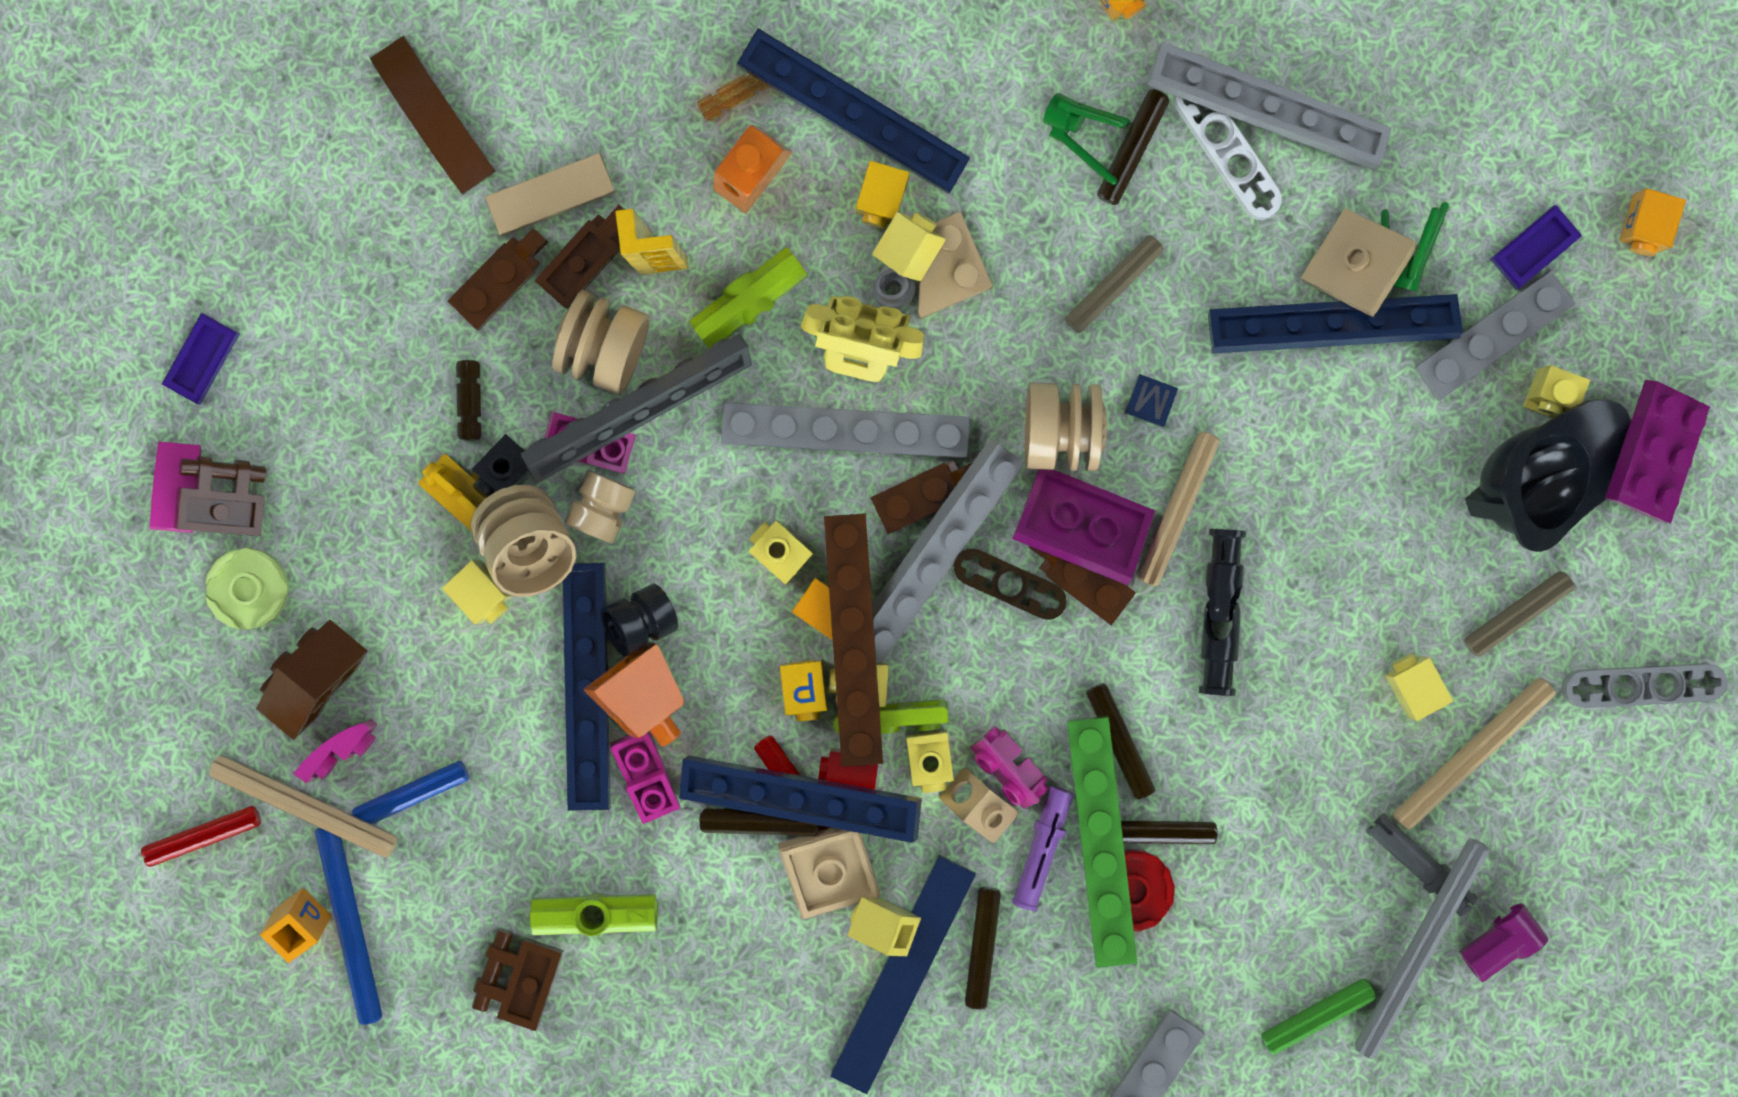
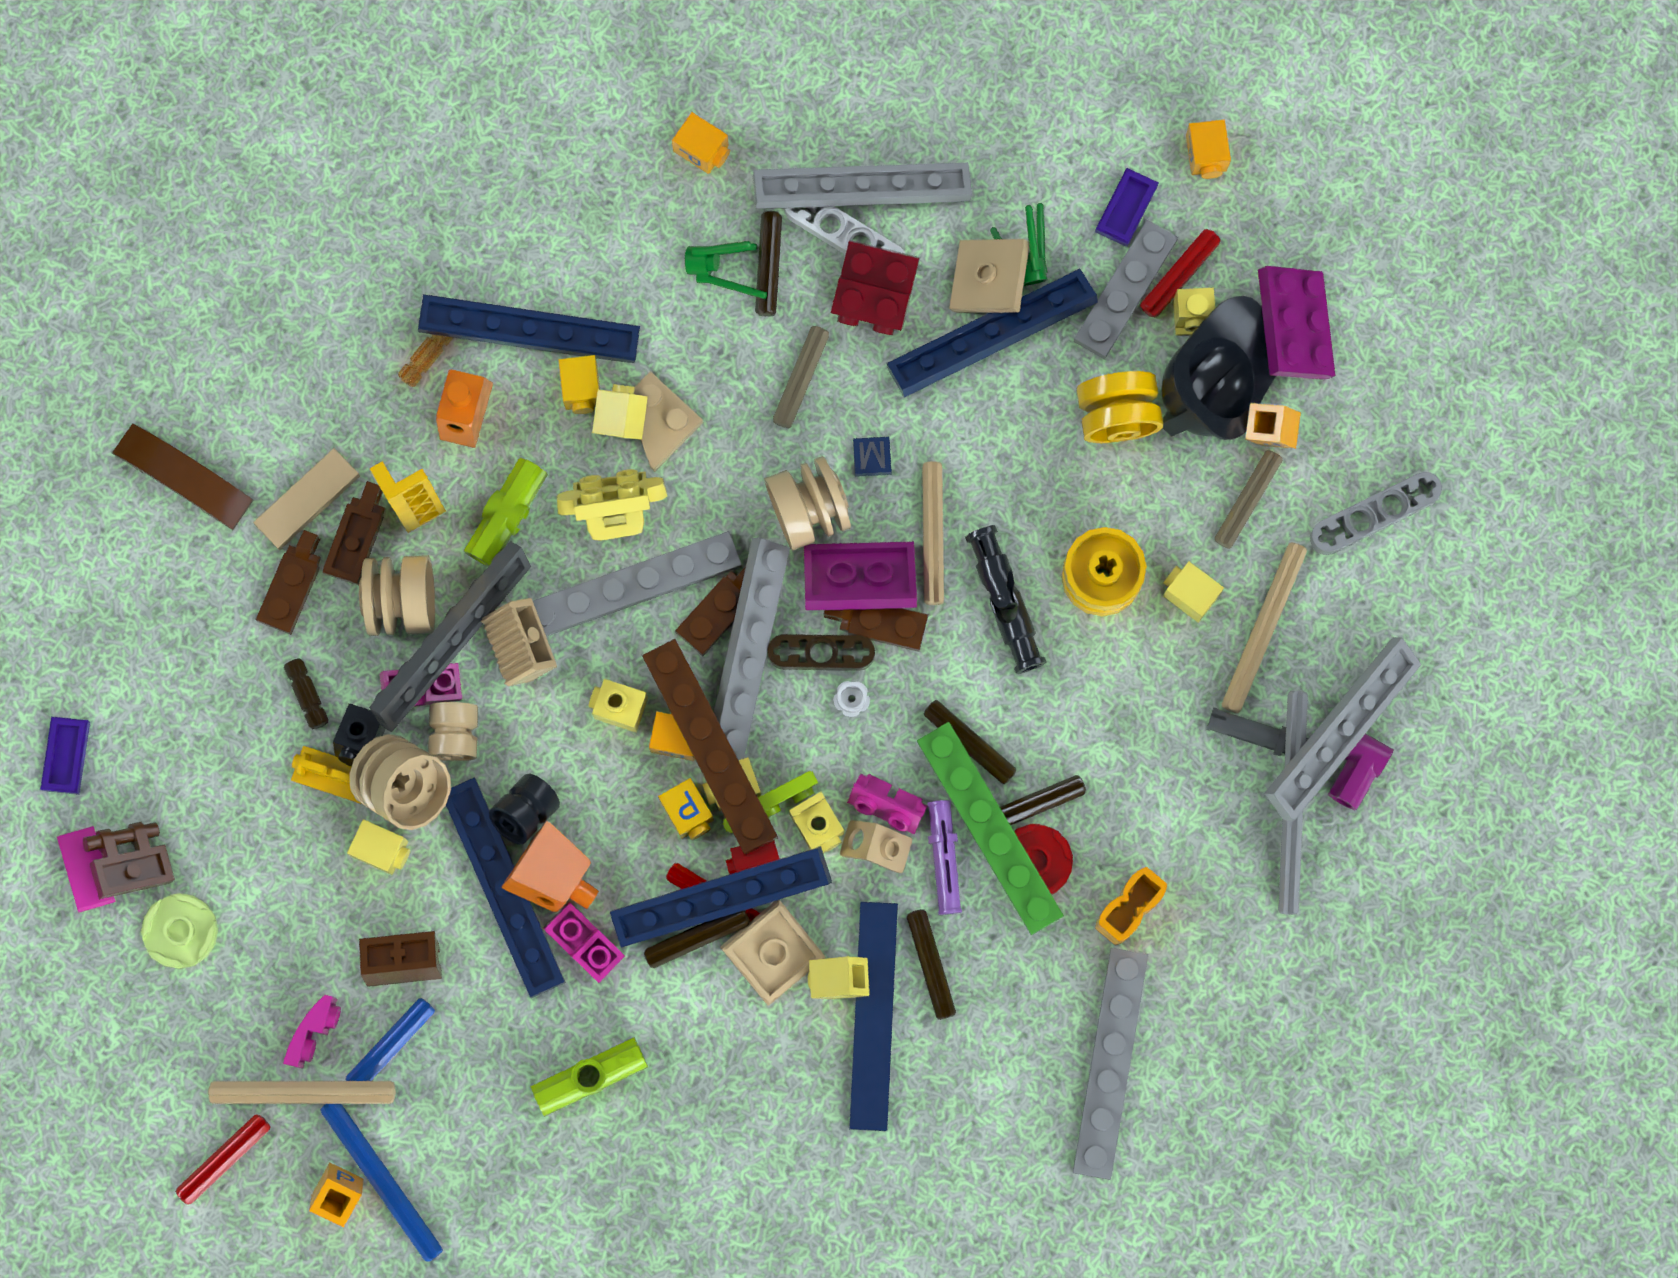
camera: 30 degrees left, 10 degrees down
(308, 677) = (263, 978): reddish brown brick -> none
(453, 714) = (399, 958): none -> reddish brown hinge
(529, 983) = (558, 1162): reddish brown plate -> none
(705, 443) = (519, 642): none -> tan brick
(887, 279) = (616, 448): light grey plate -> none
(1028, 637) = (855, 689): none -> white plate
(1219, 977) = (1136, 899): none -> light orange brick
(1233, 223) = (875, 287): none -> dark red plate
(1318, 1016) = (1236, 899): bright green axle -> none
(1360, 634) = (1106, 550): none -> yellow wheel
(1432, 465) = (1119, 407): none -> yellow wheel
(1507, 900) = (1342, 729): none -> light grey plate
(1559, 343) = (1180, 273): none -> red axle
(1582, 552) = (1273, 425): none -> light orange brick

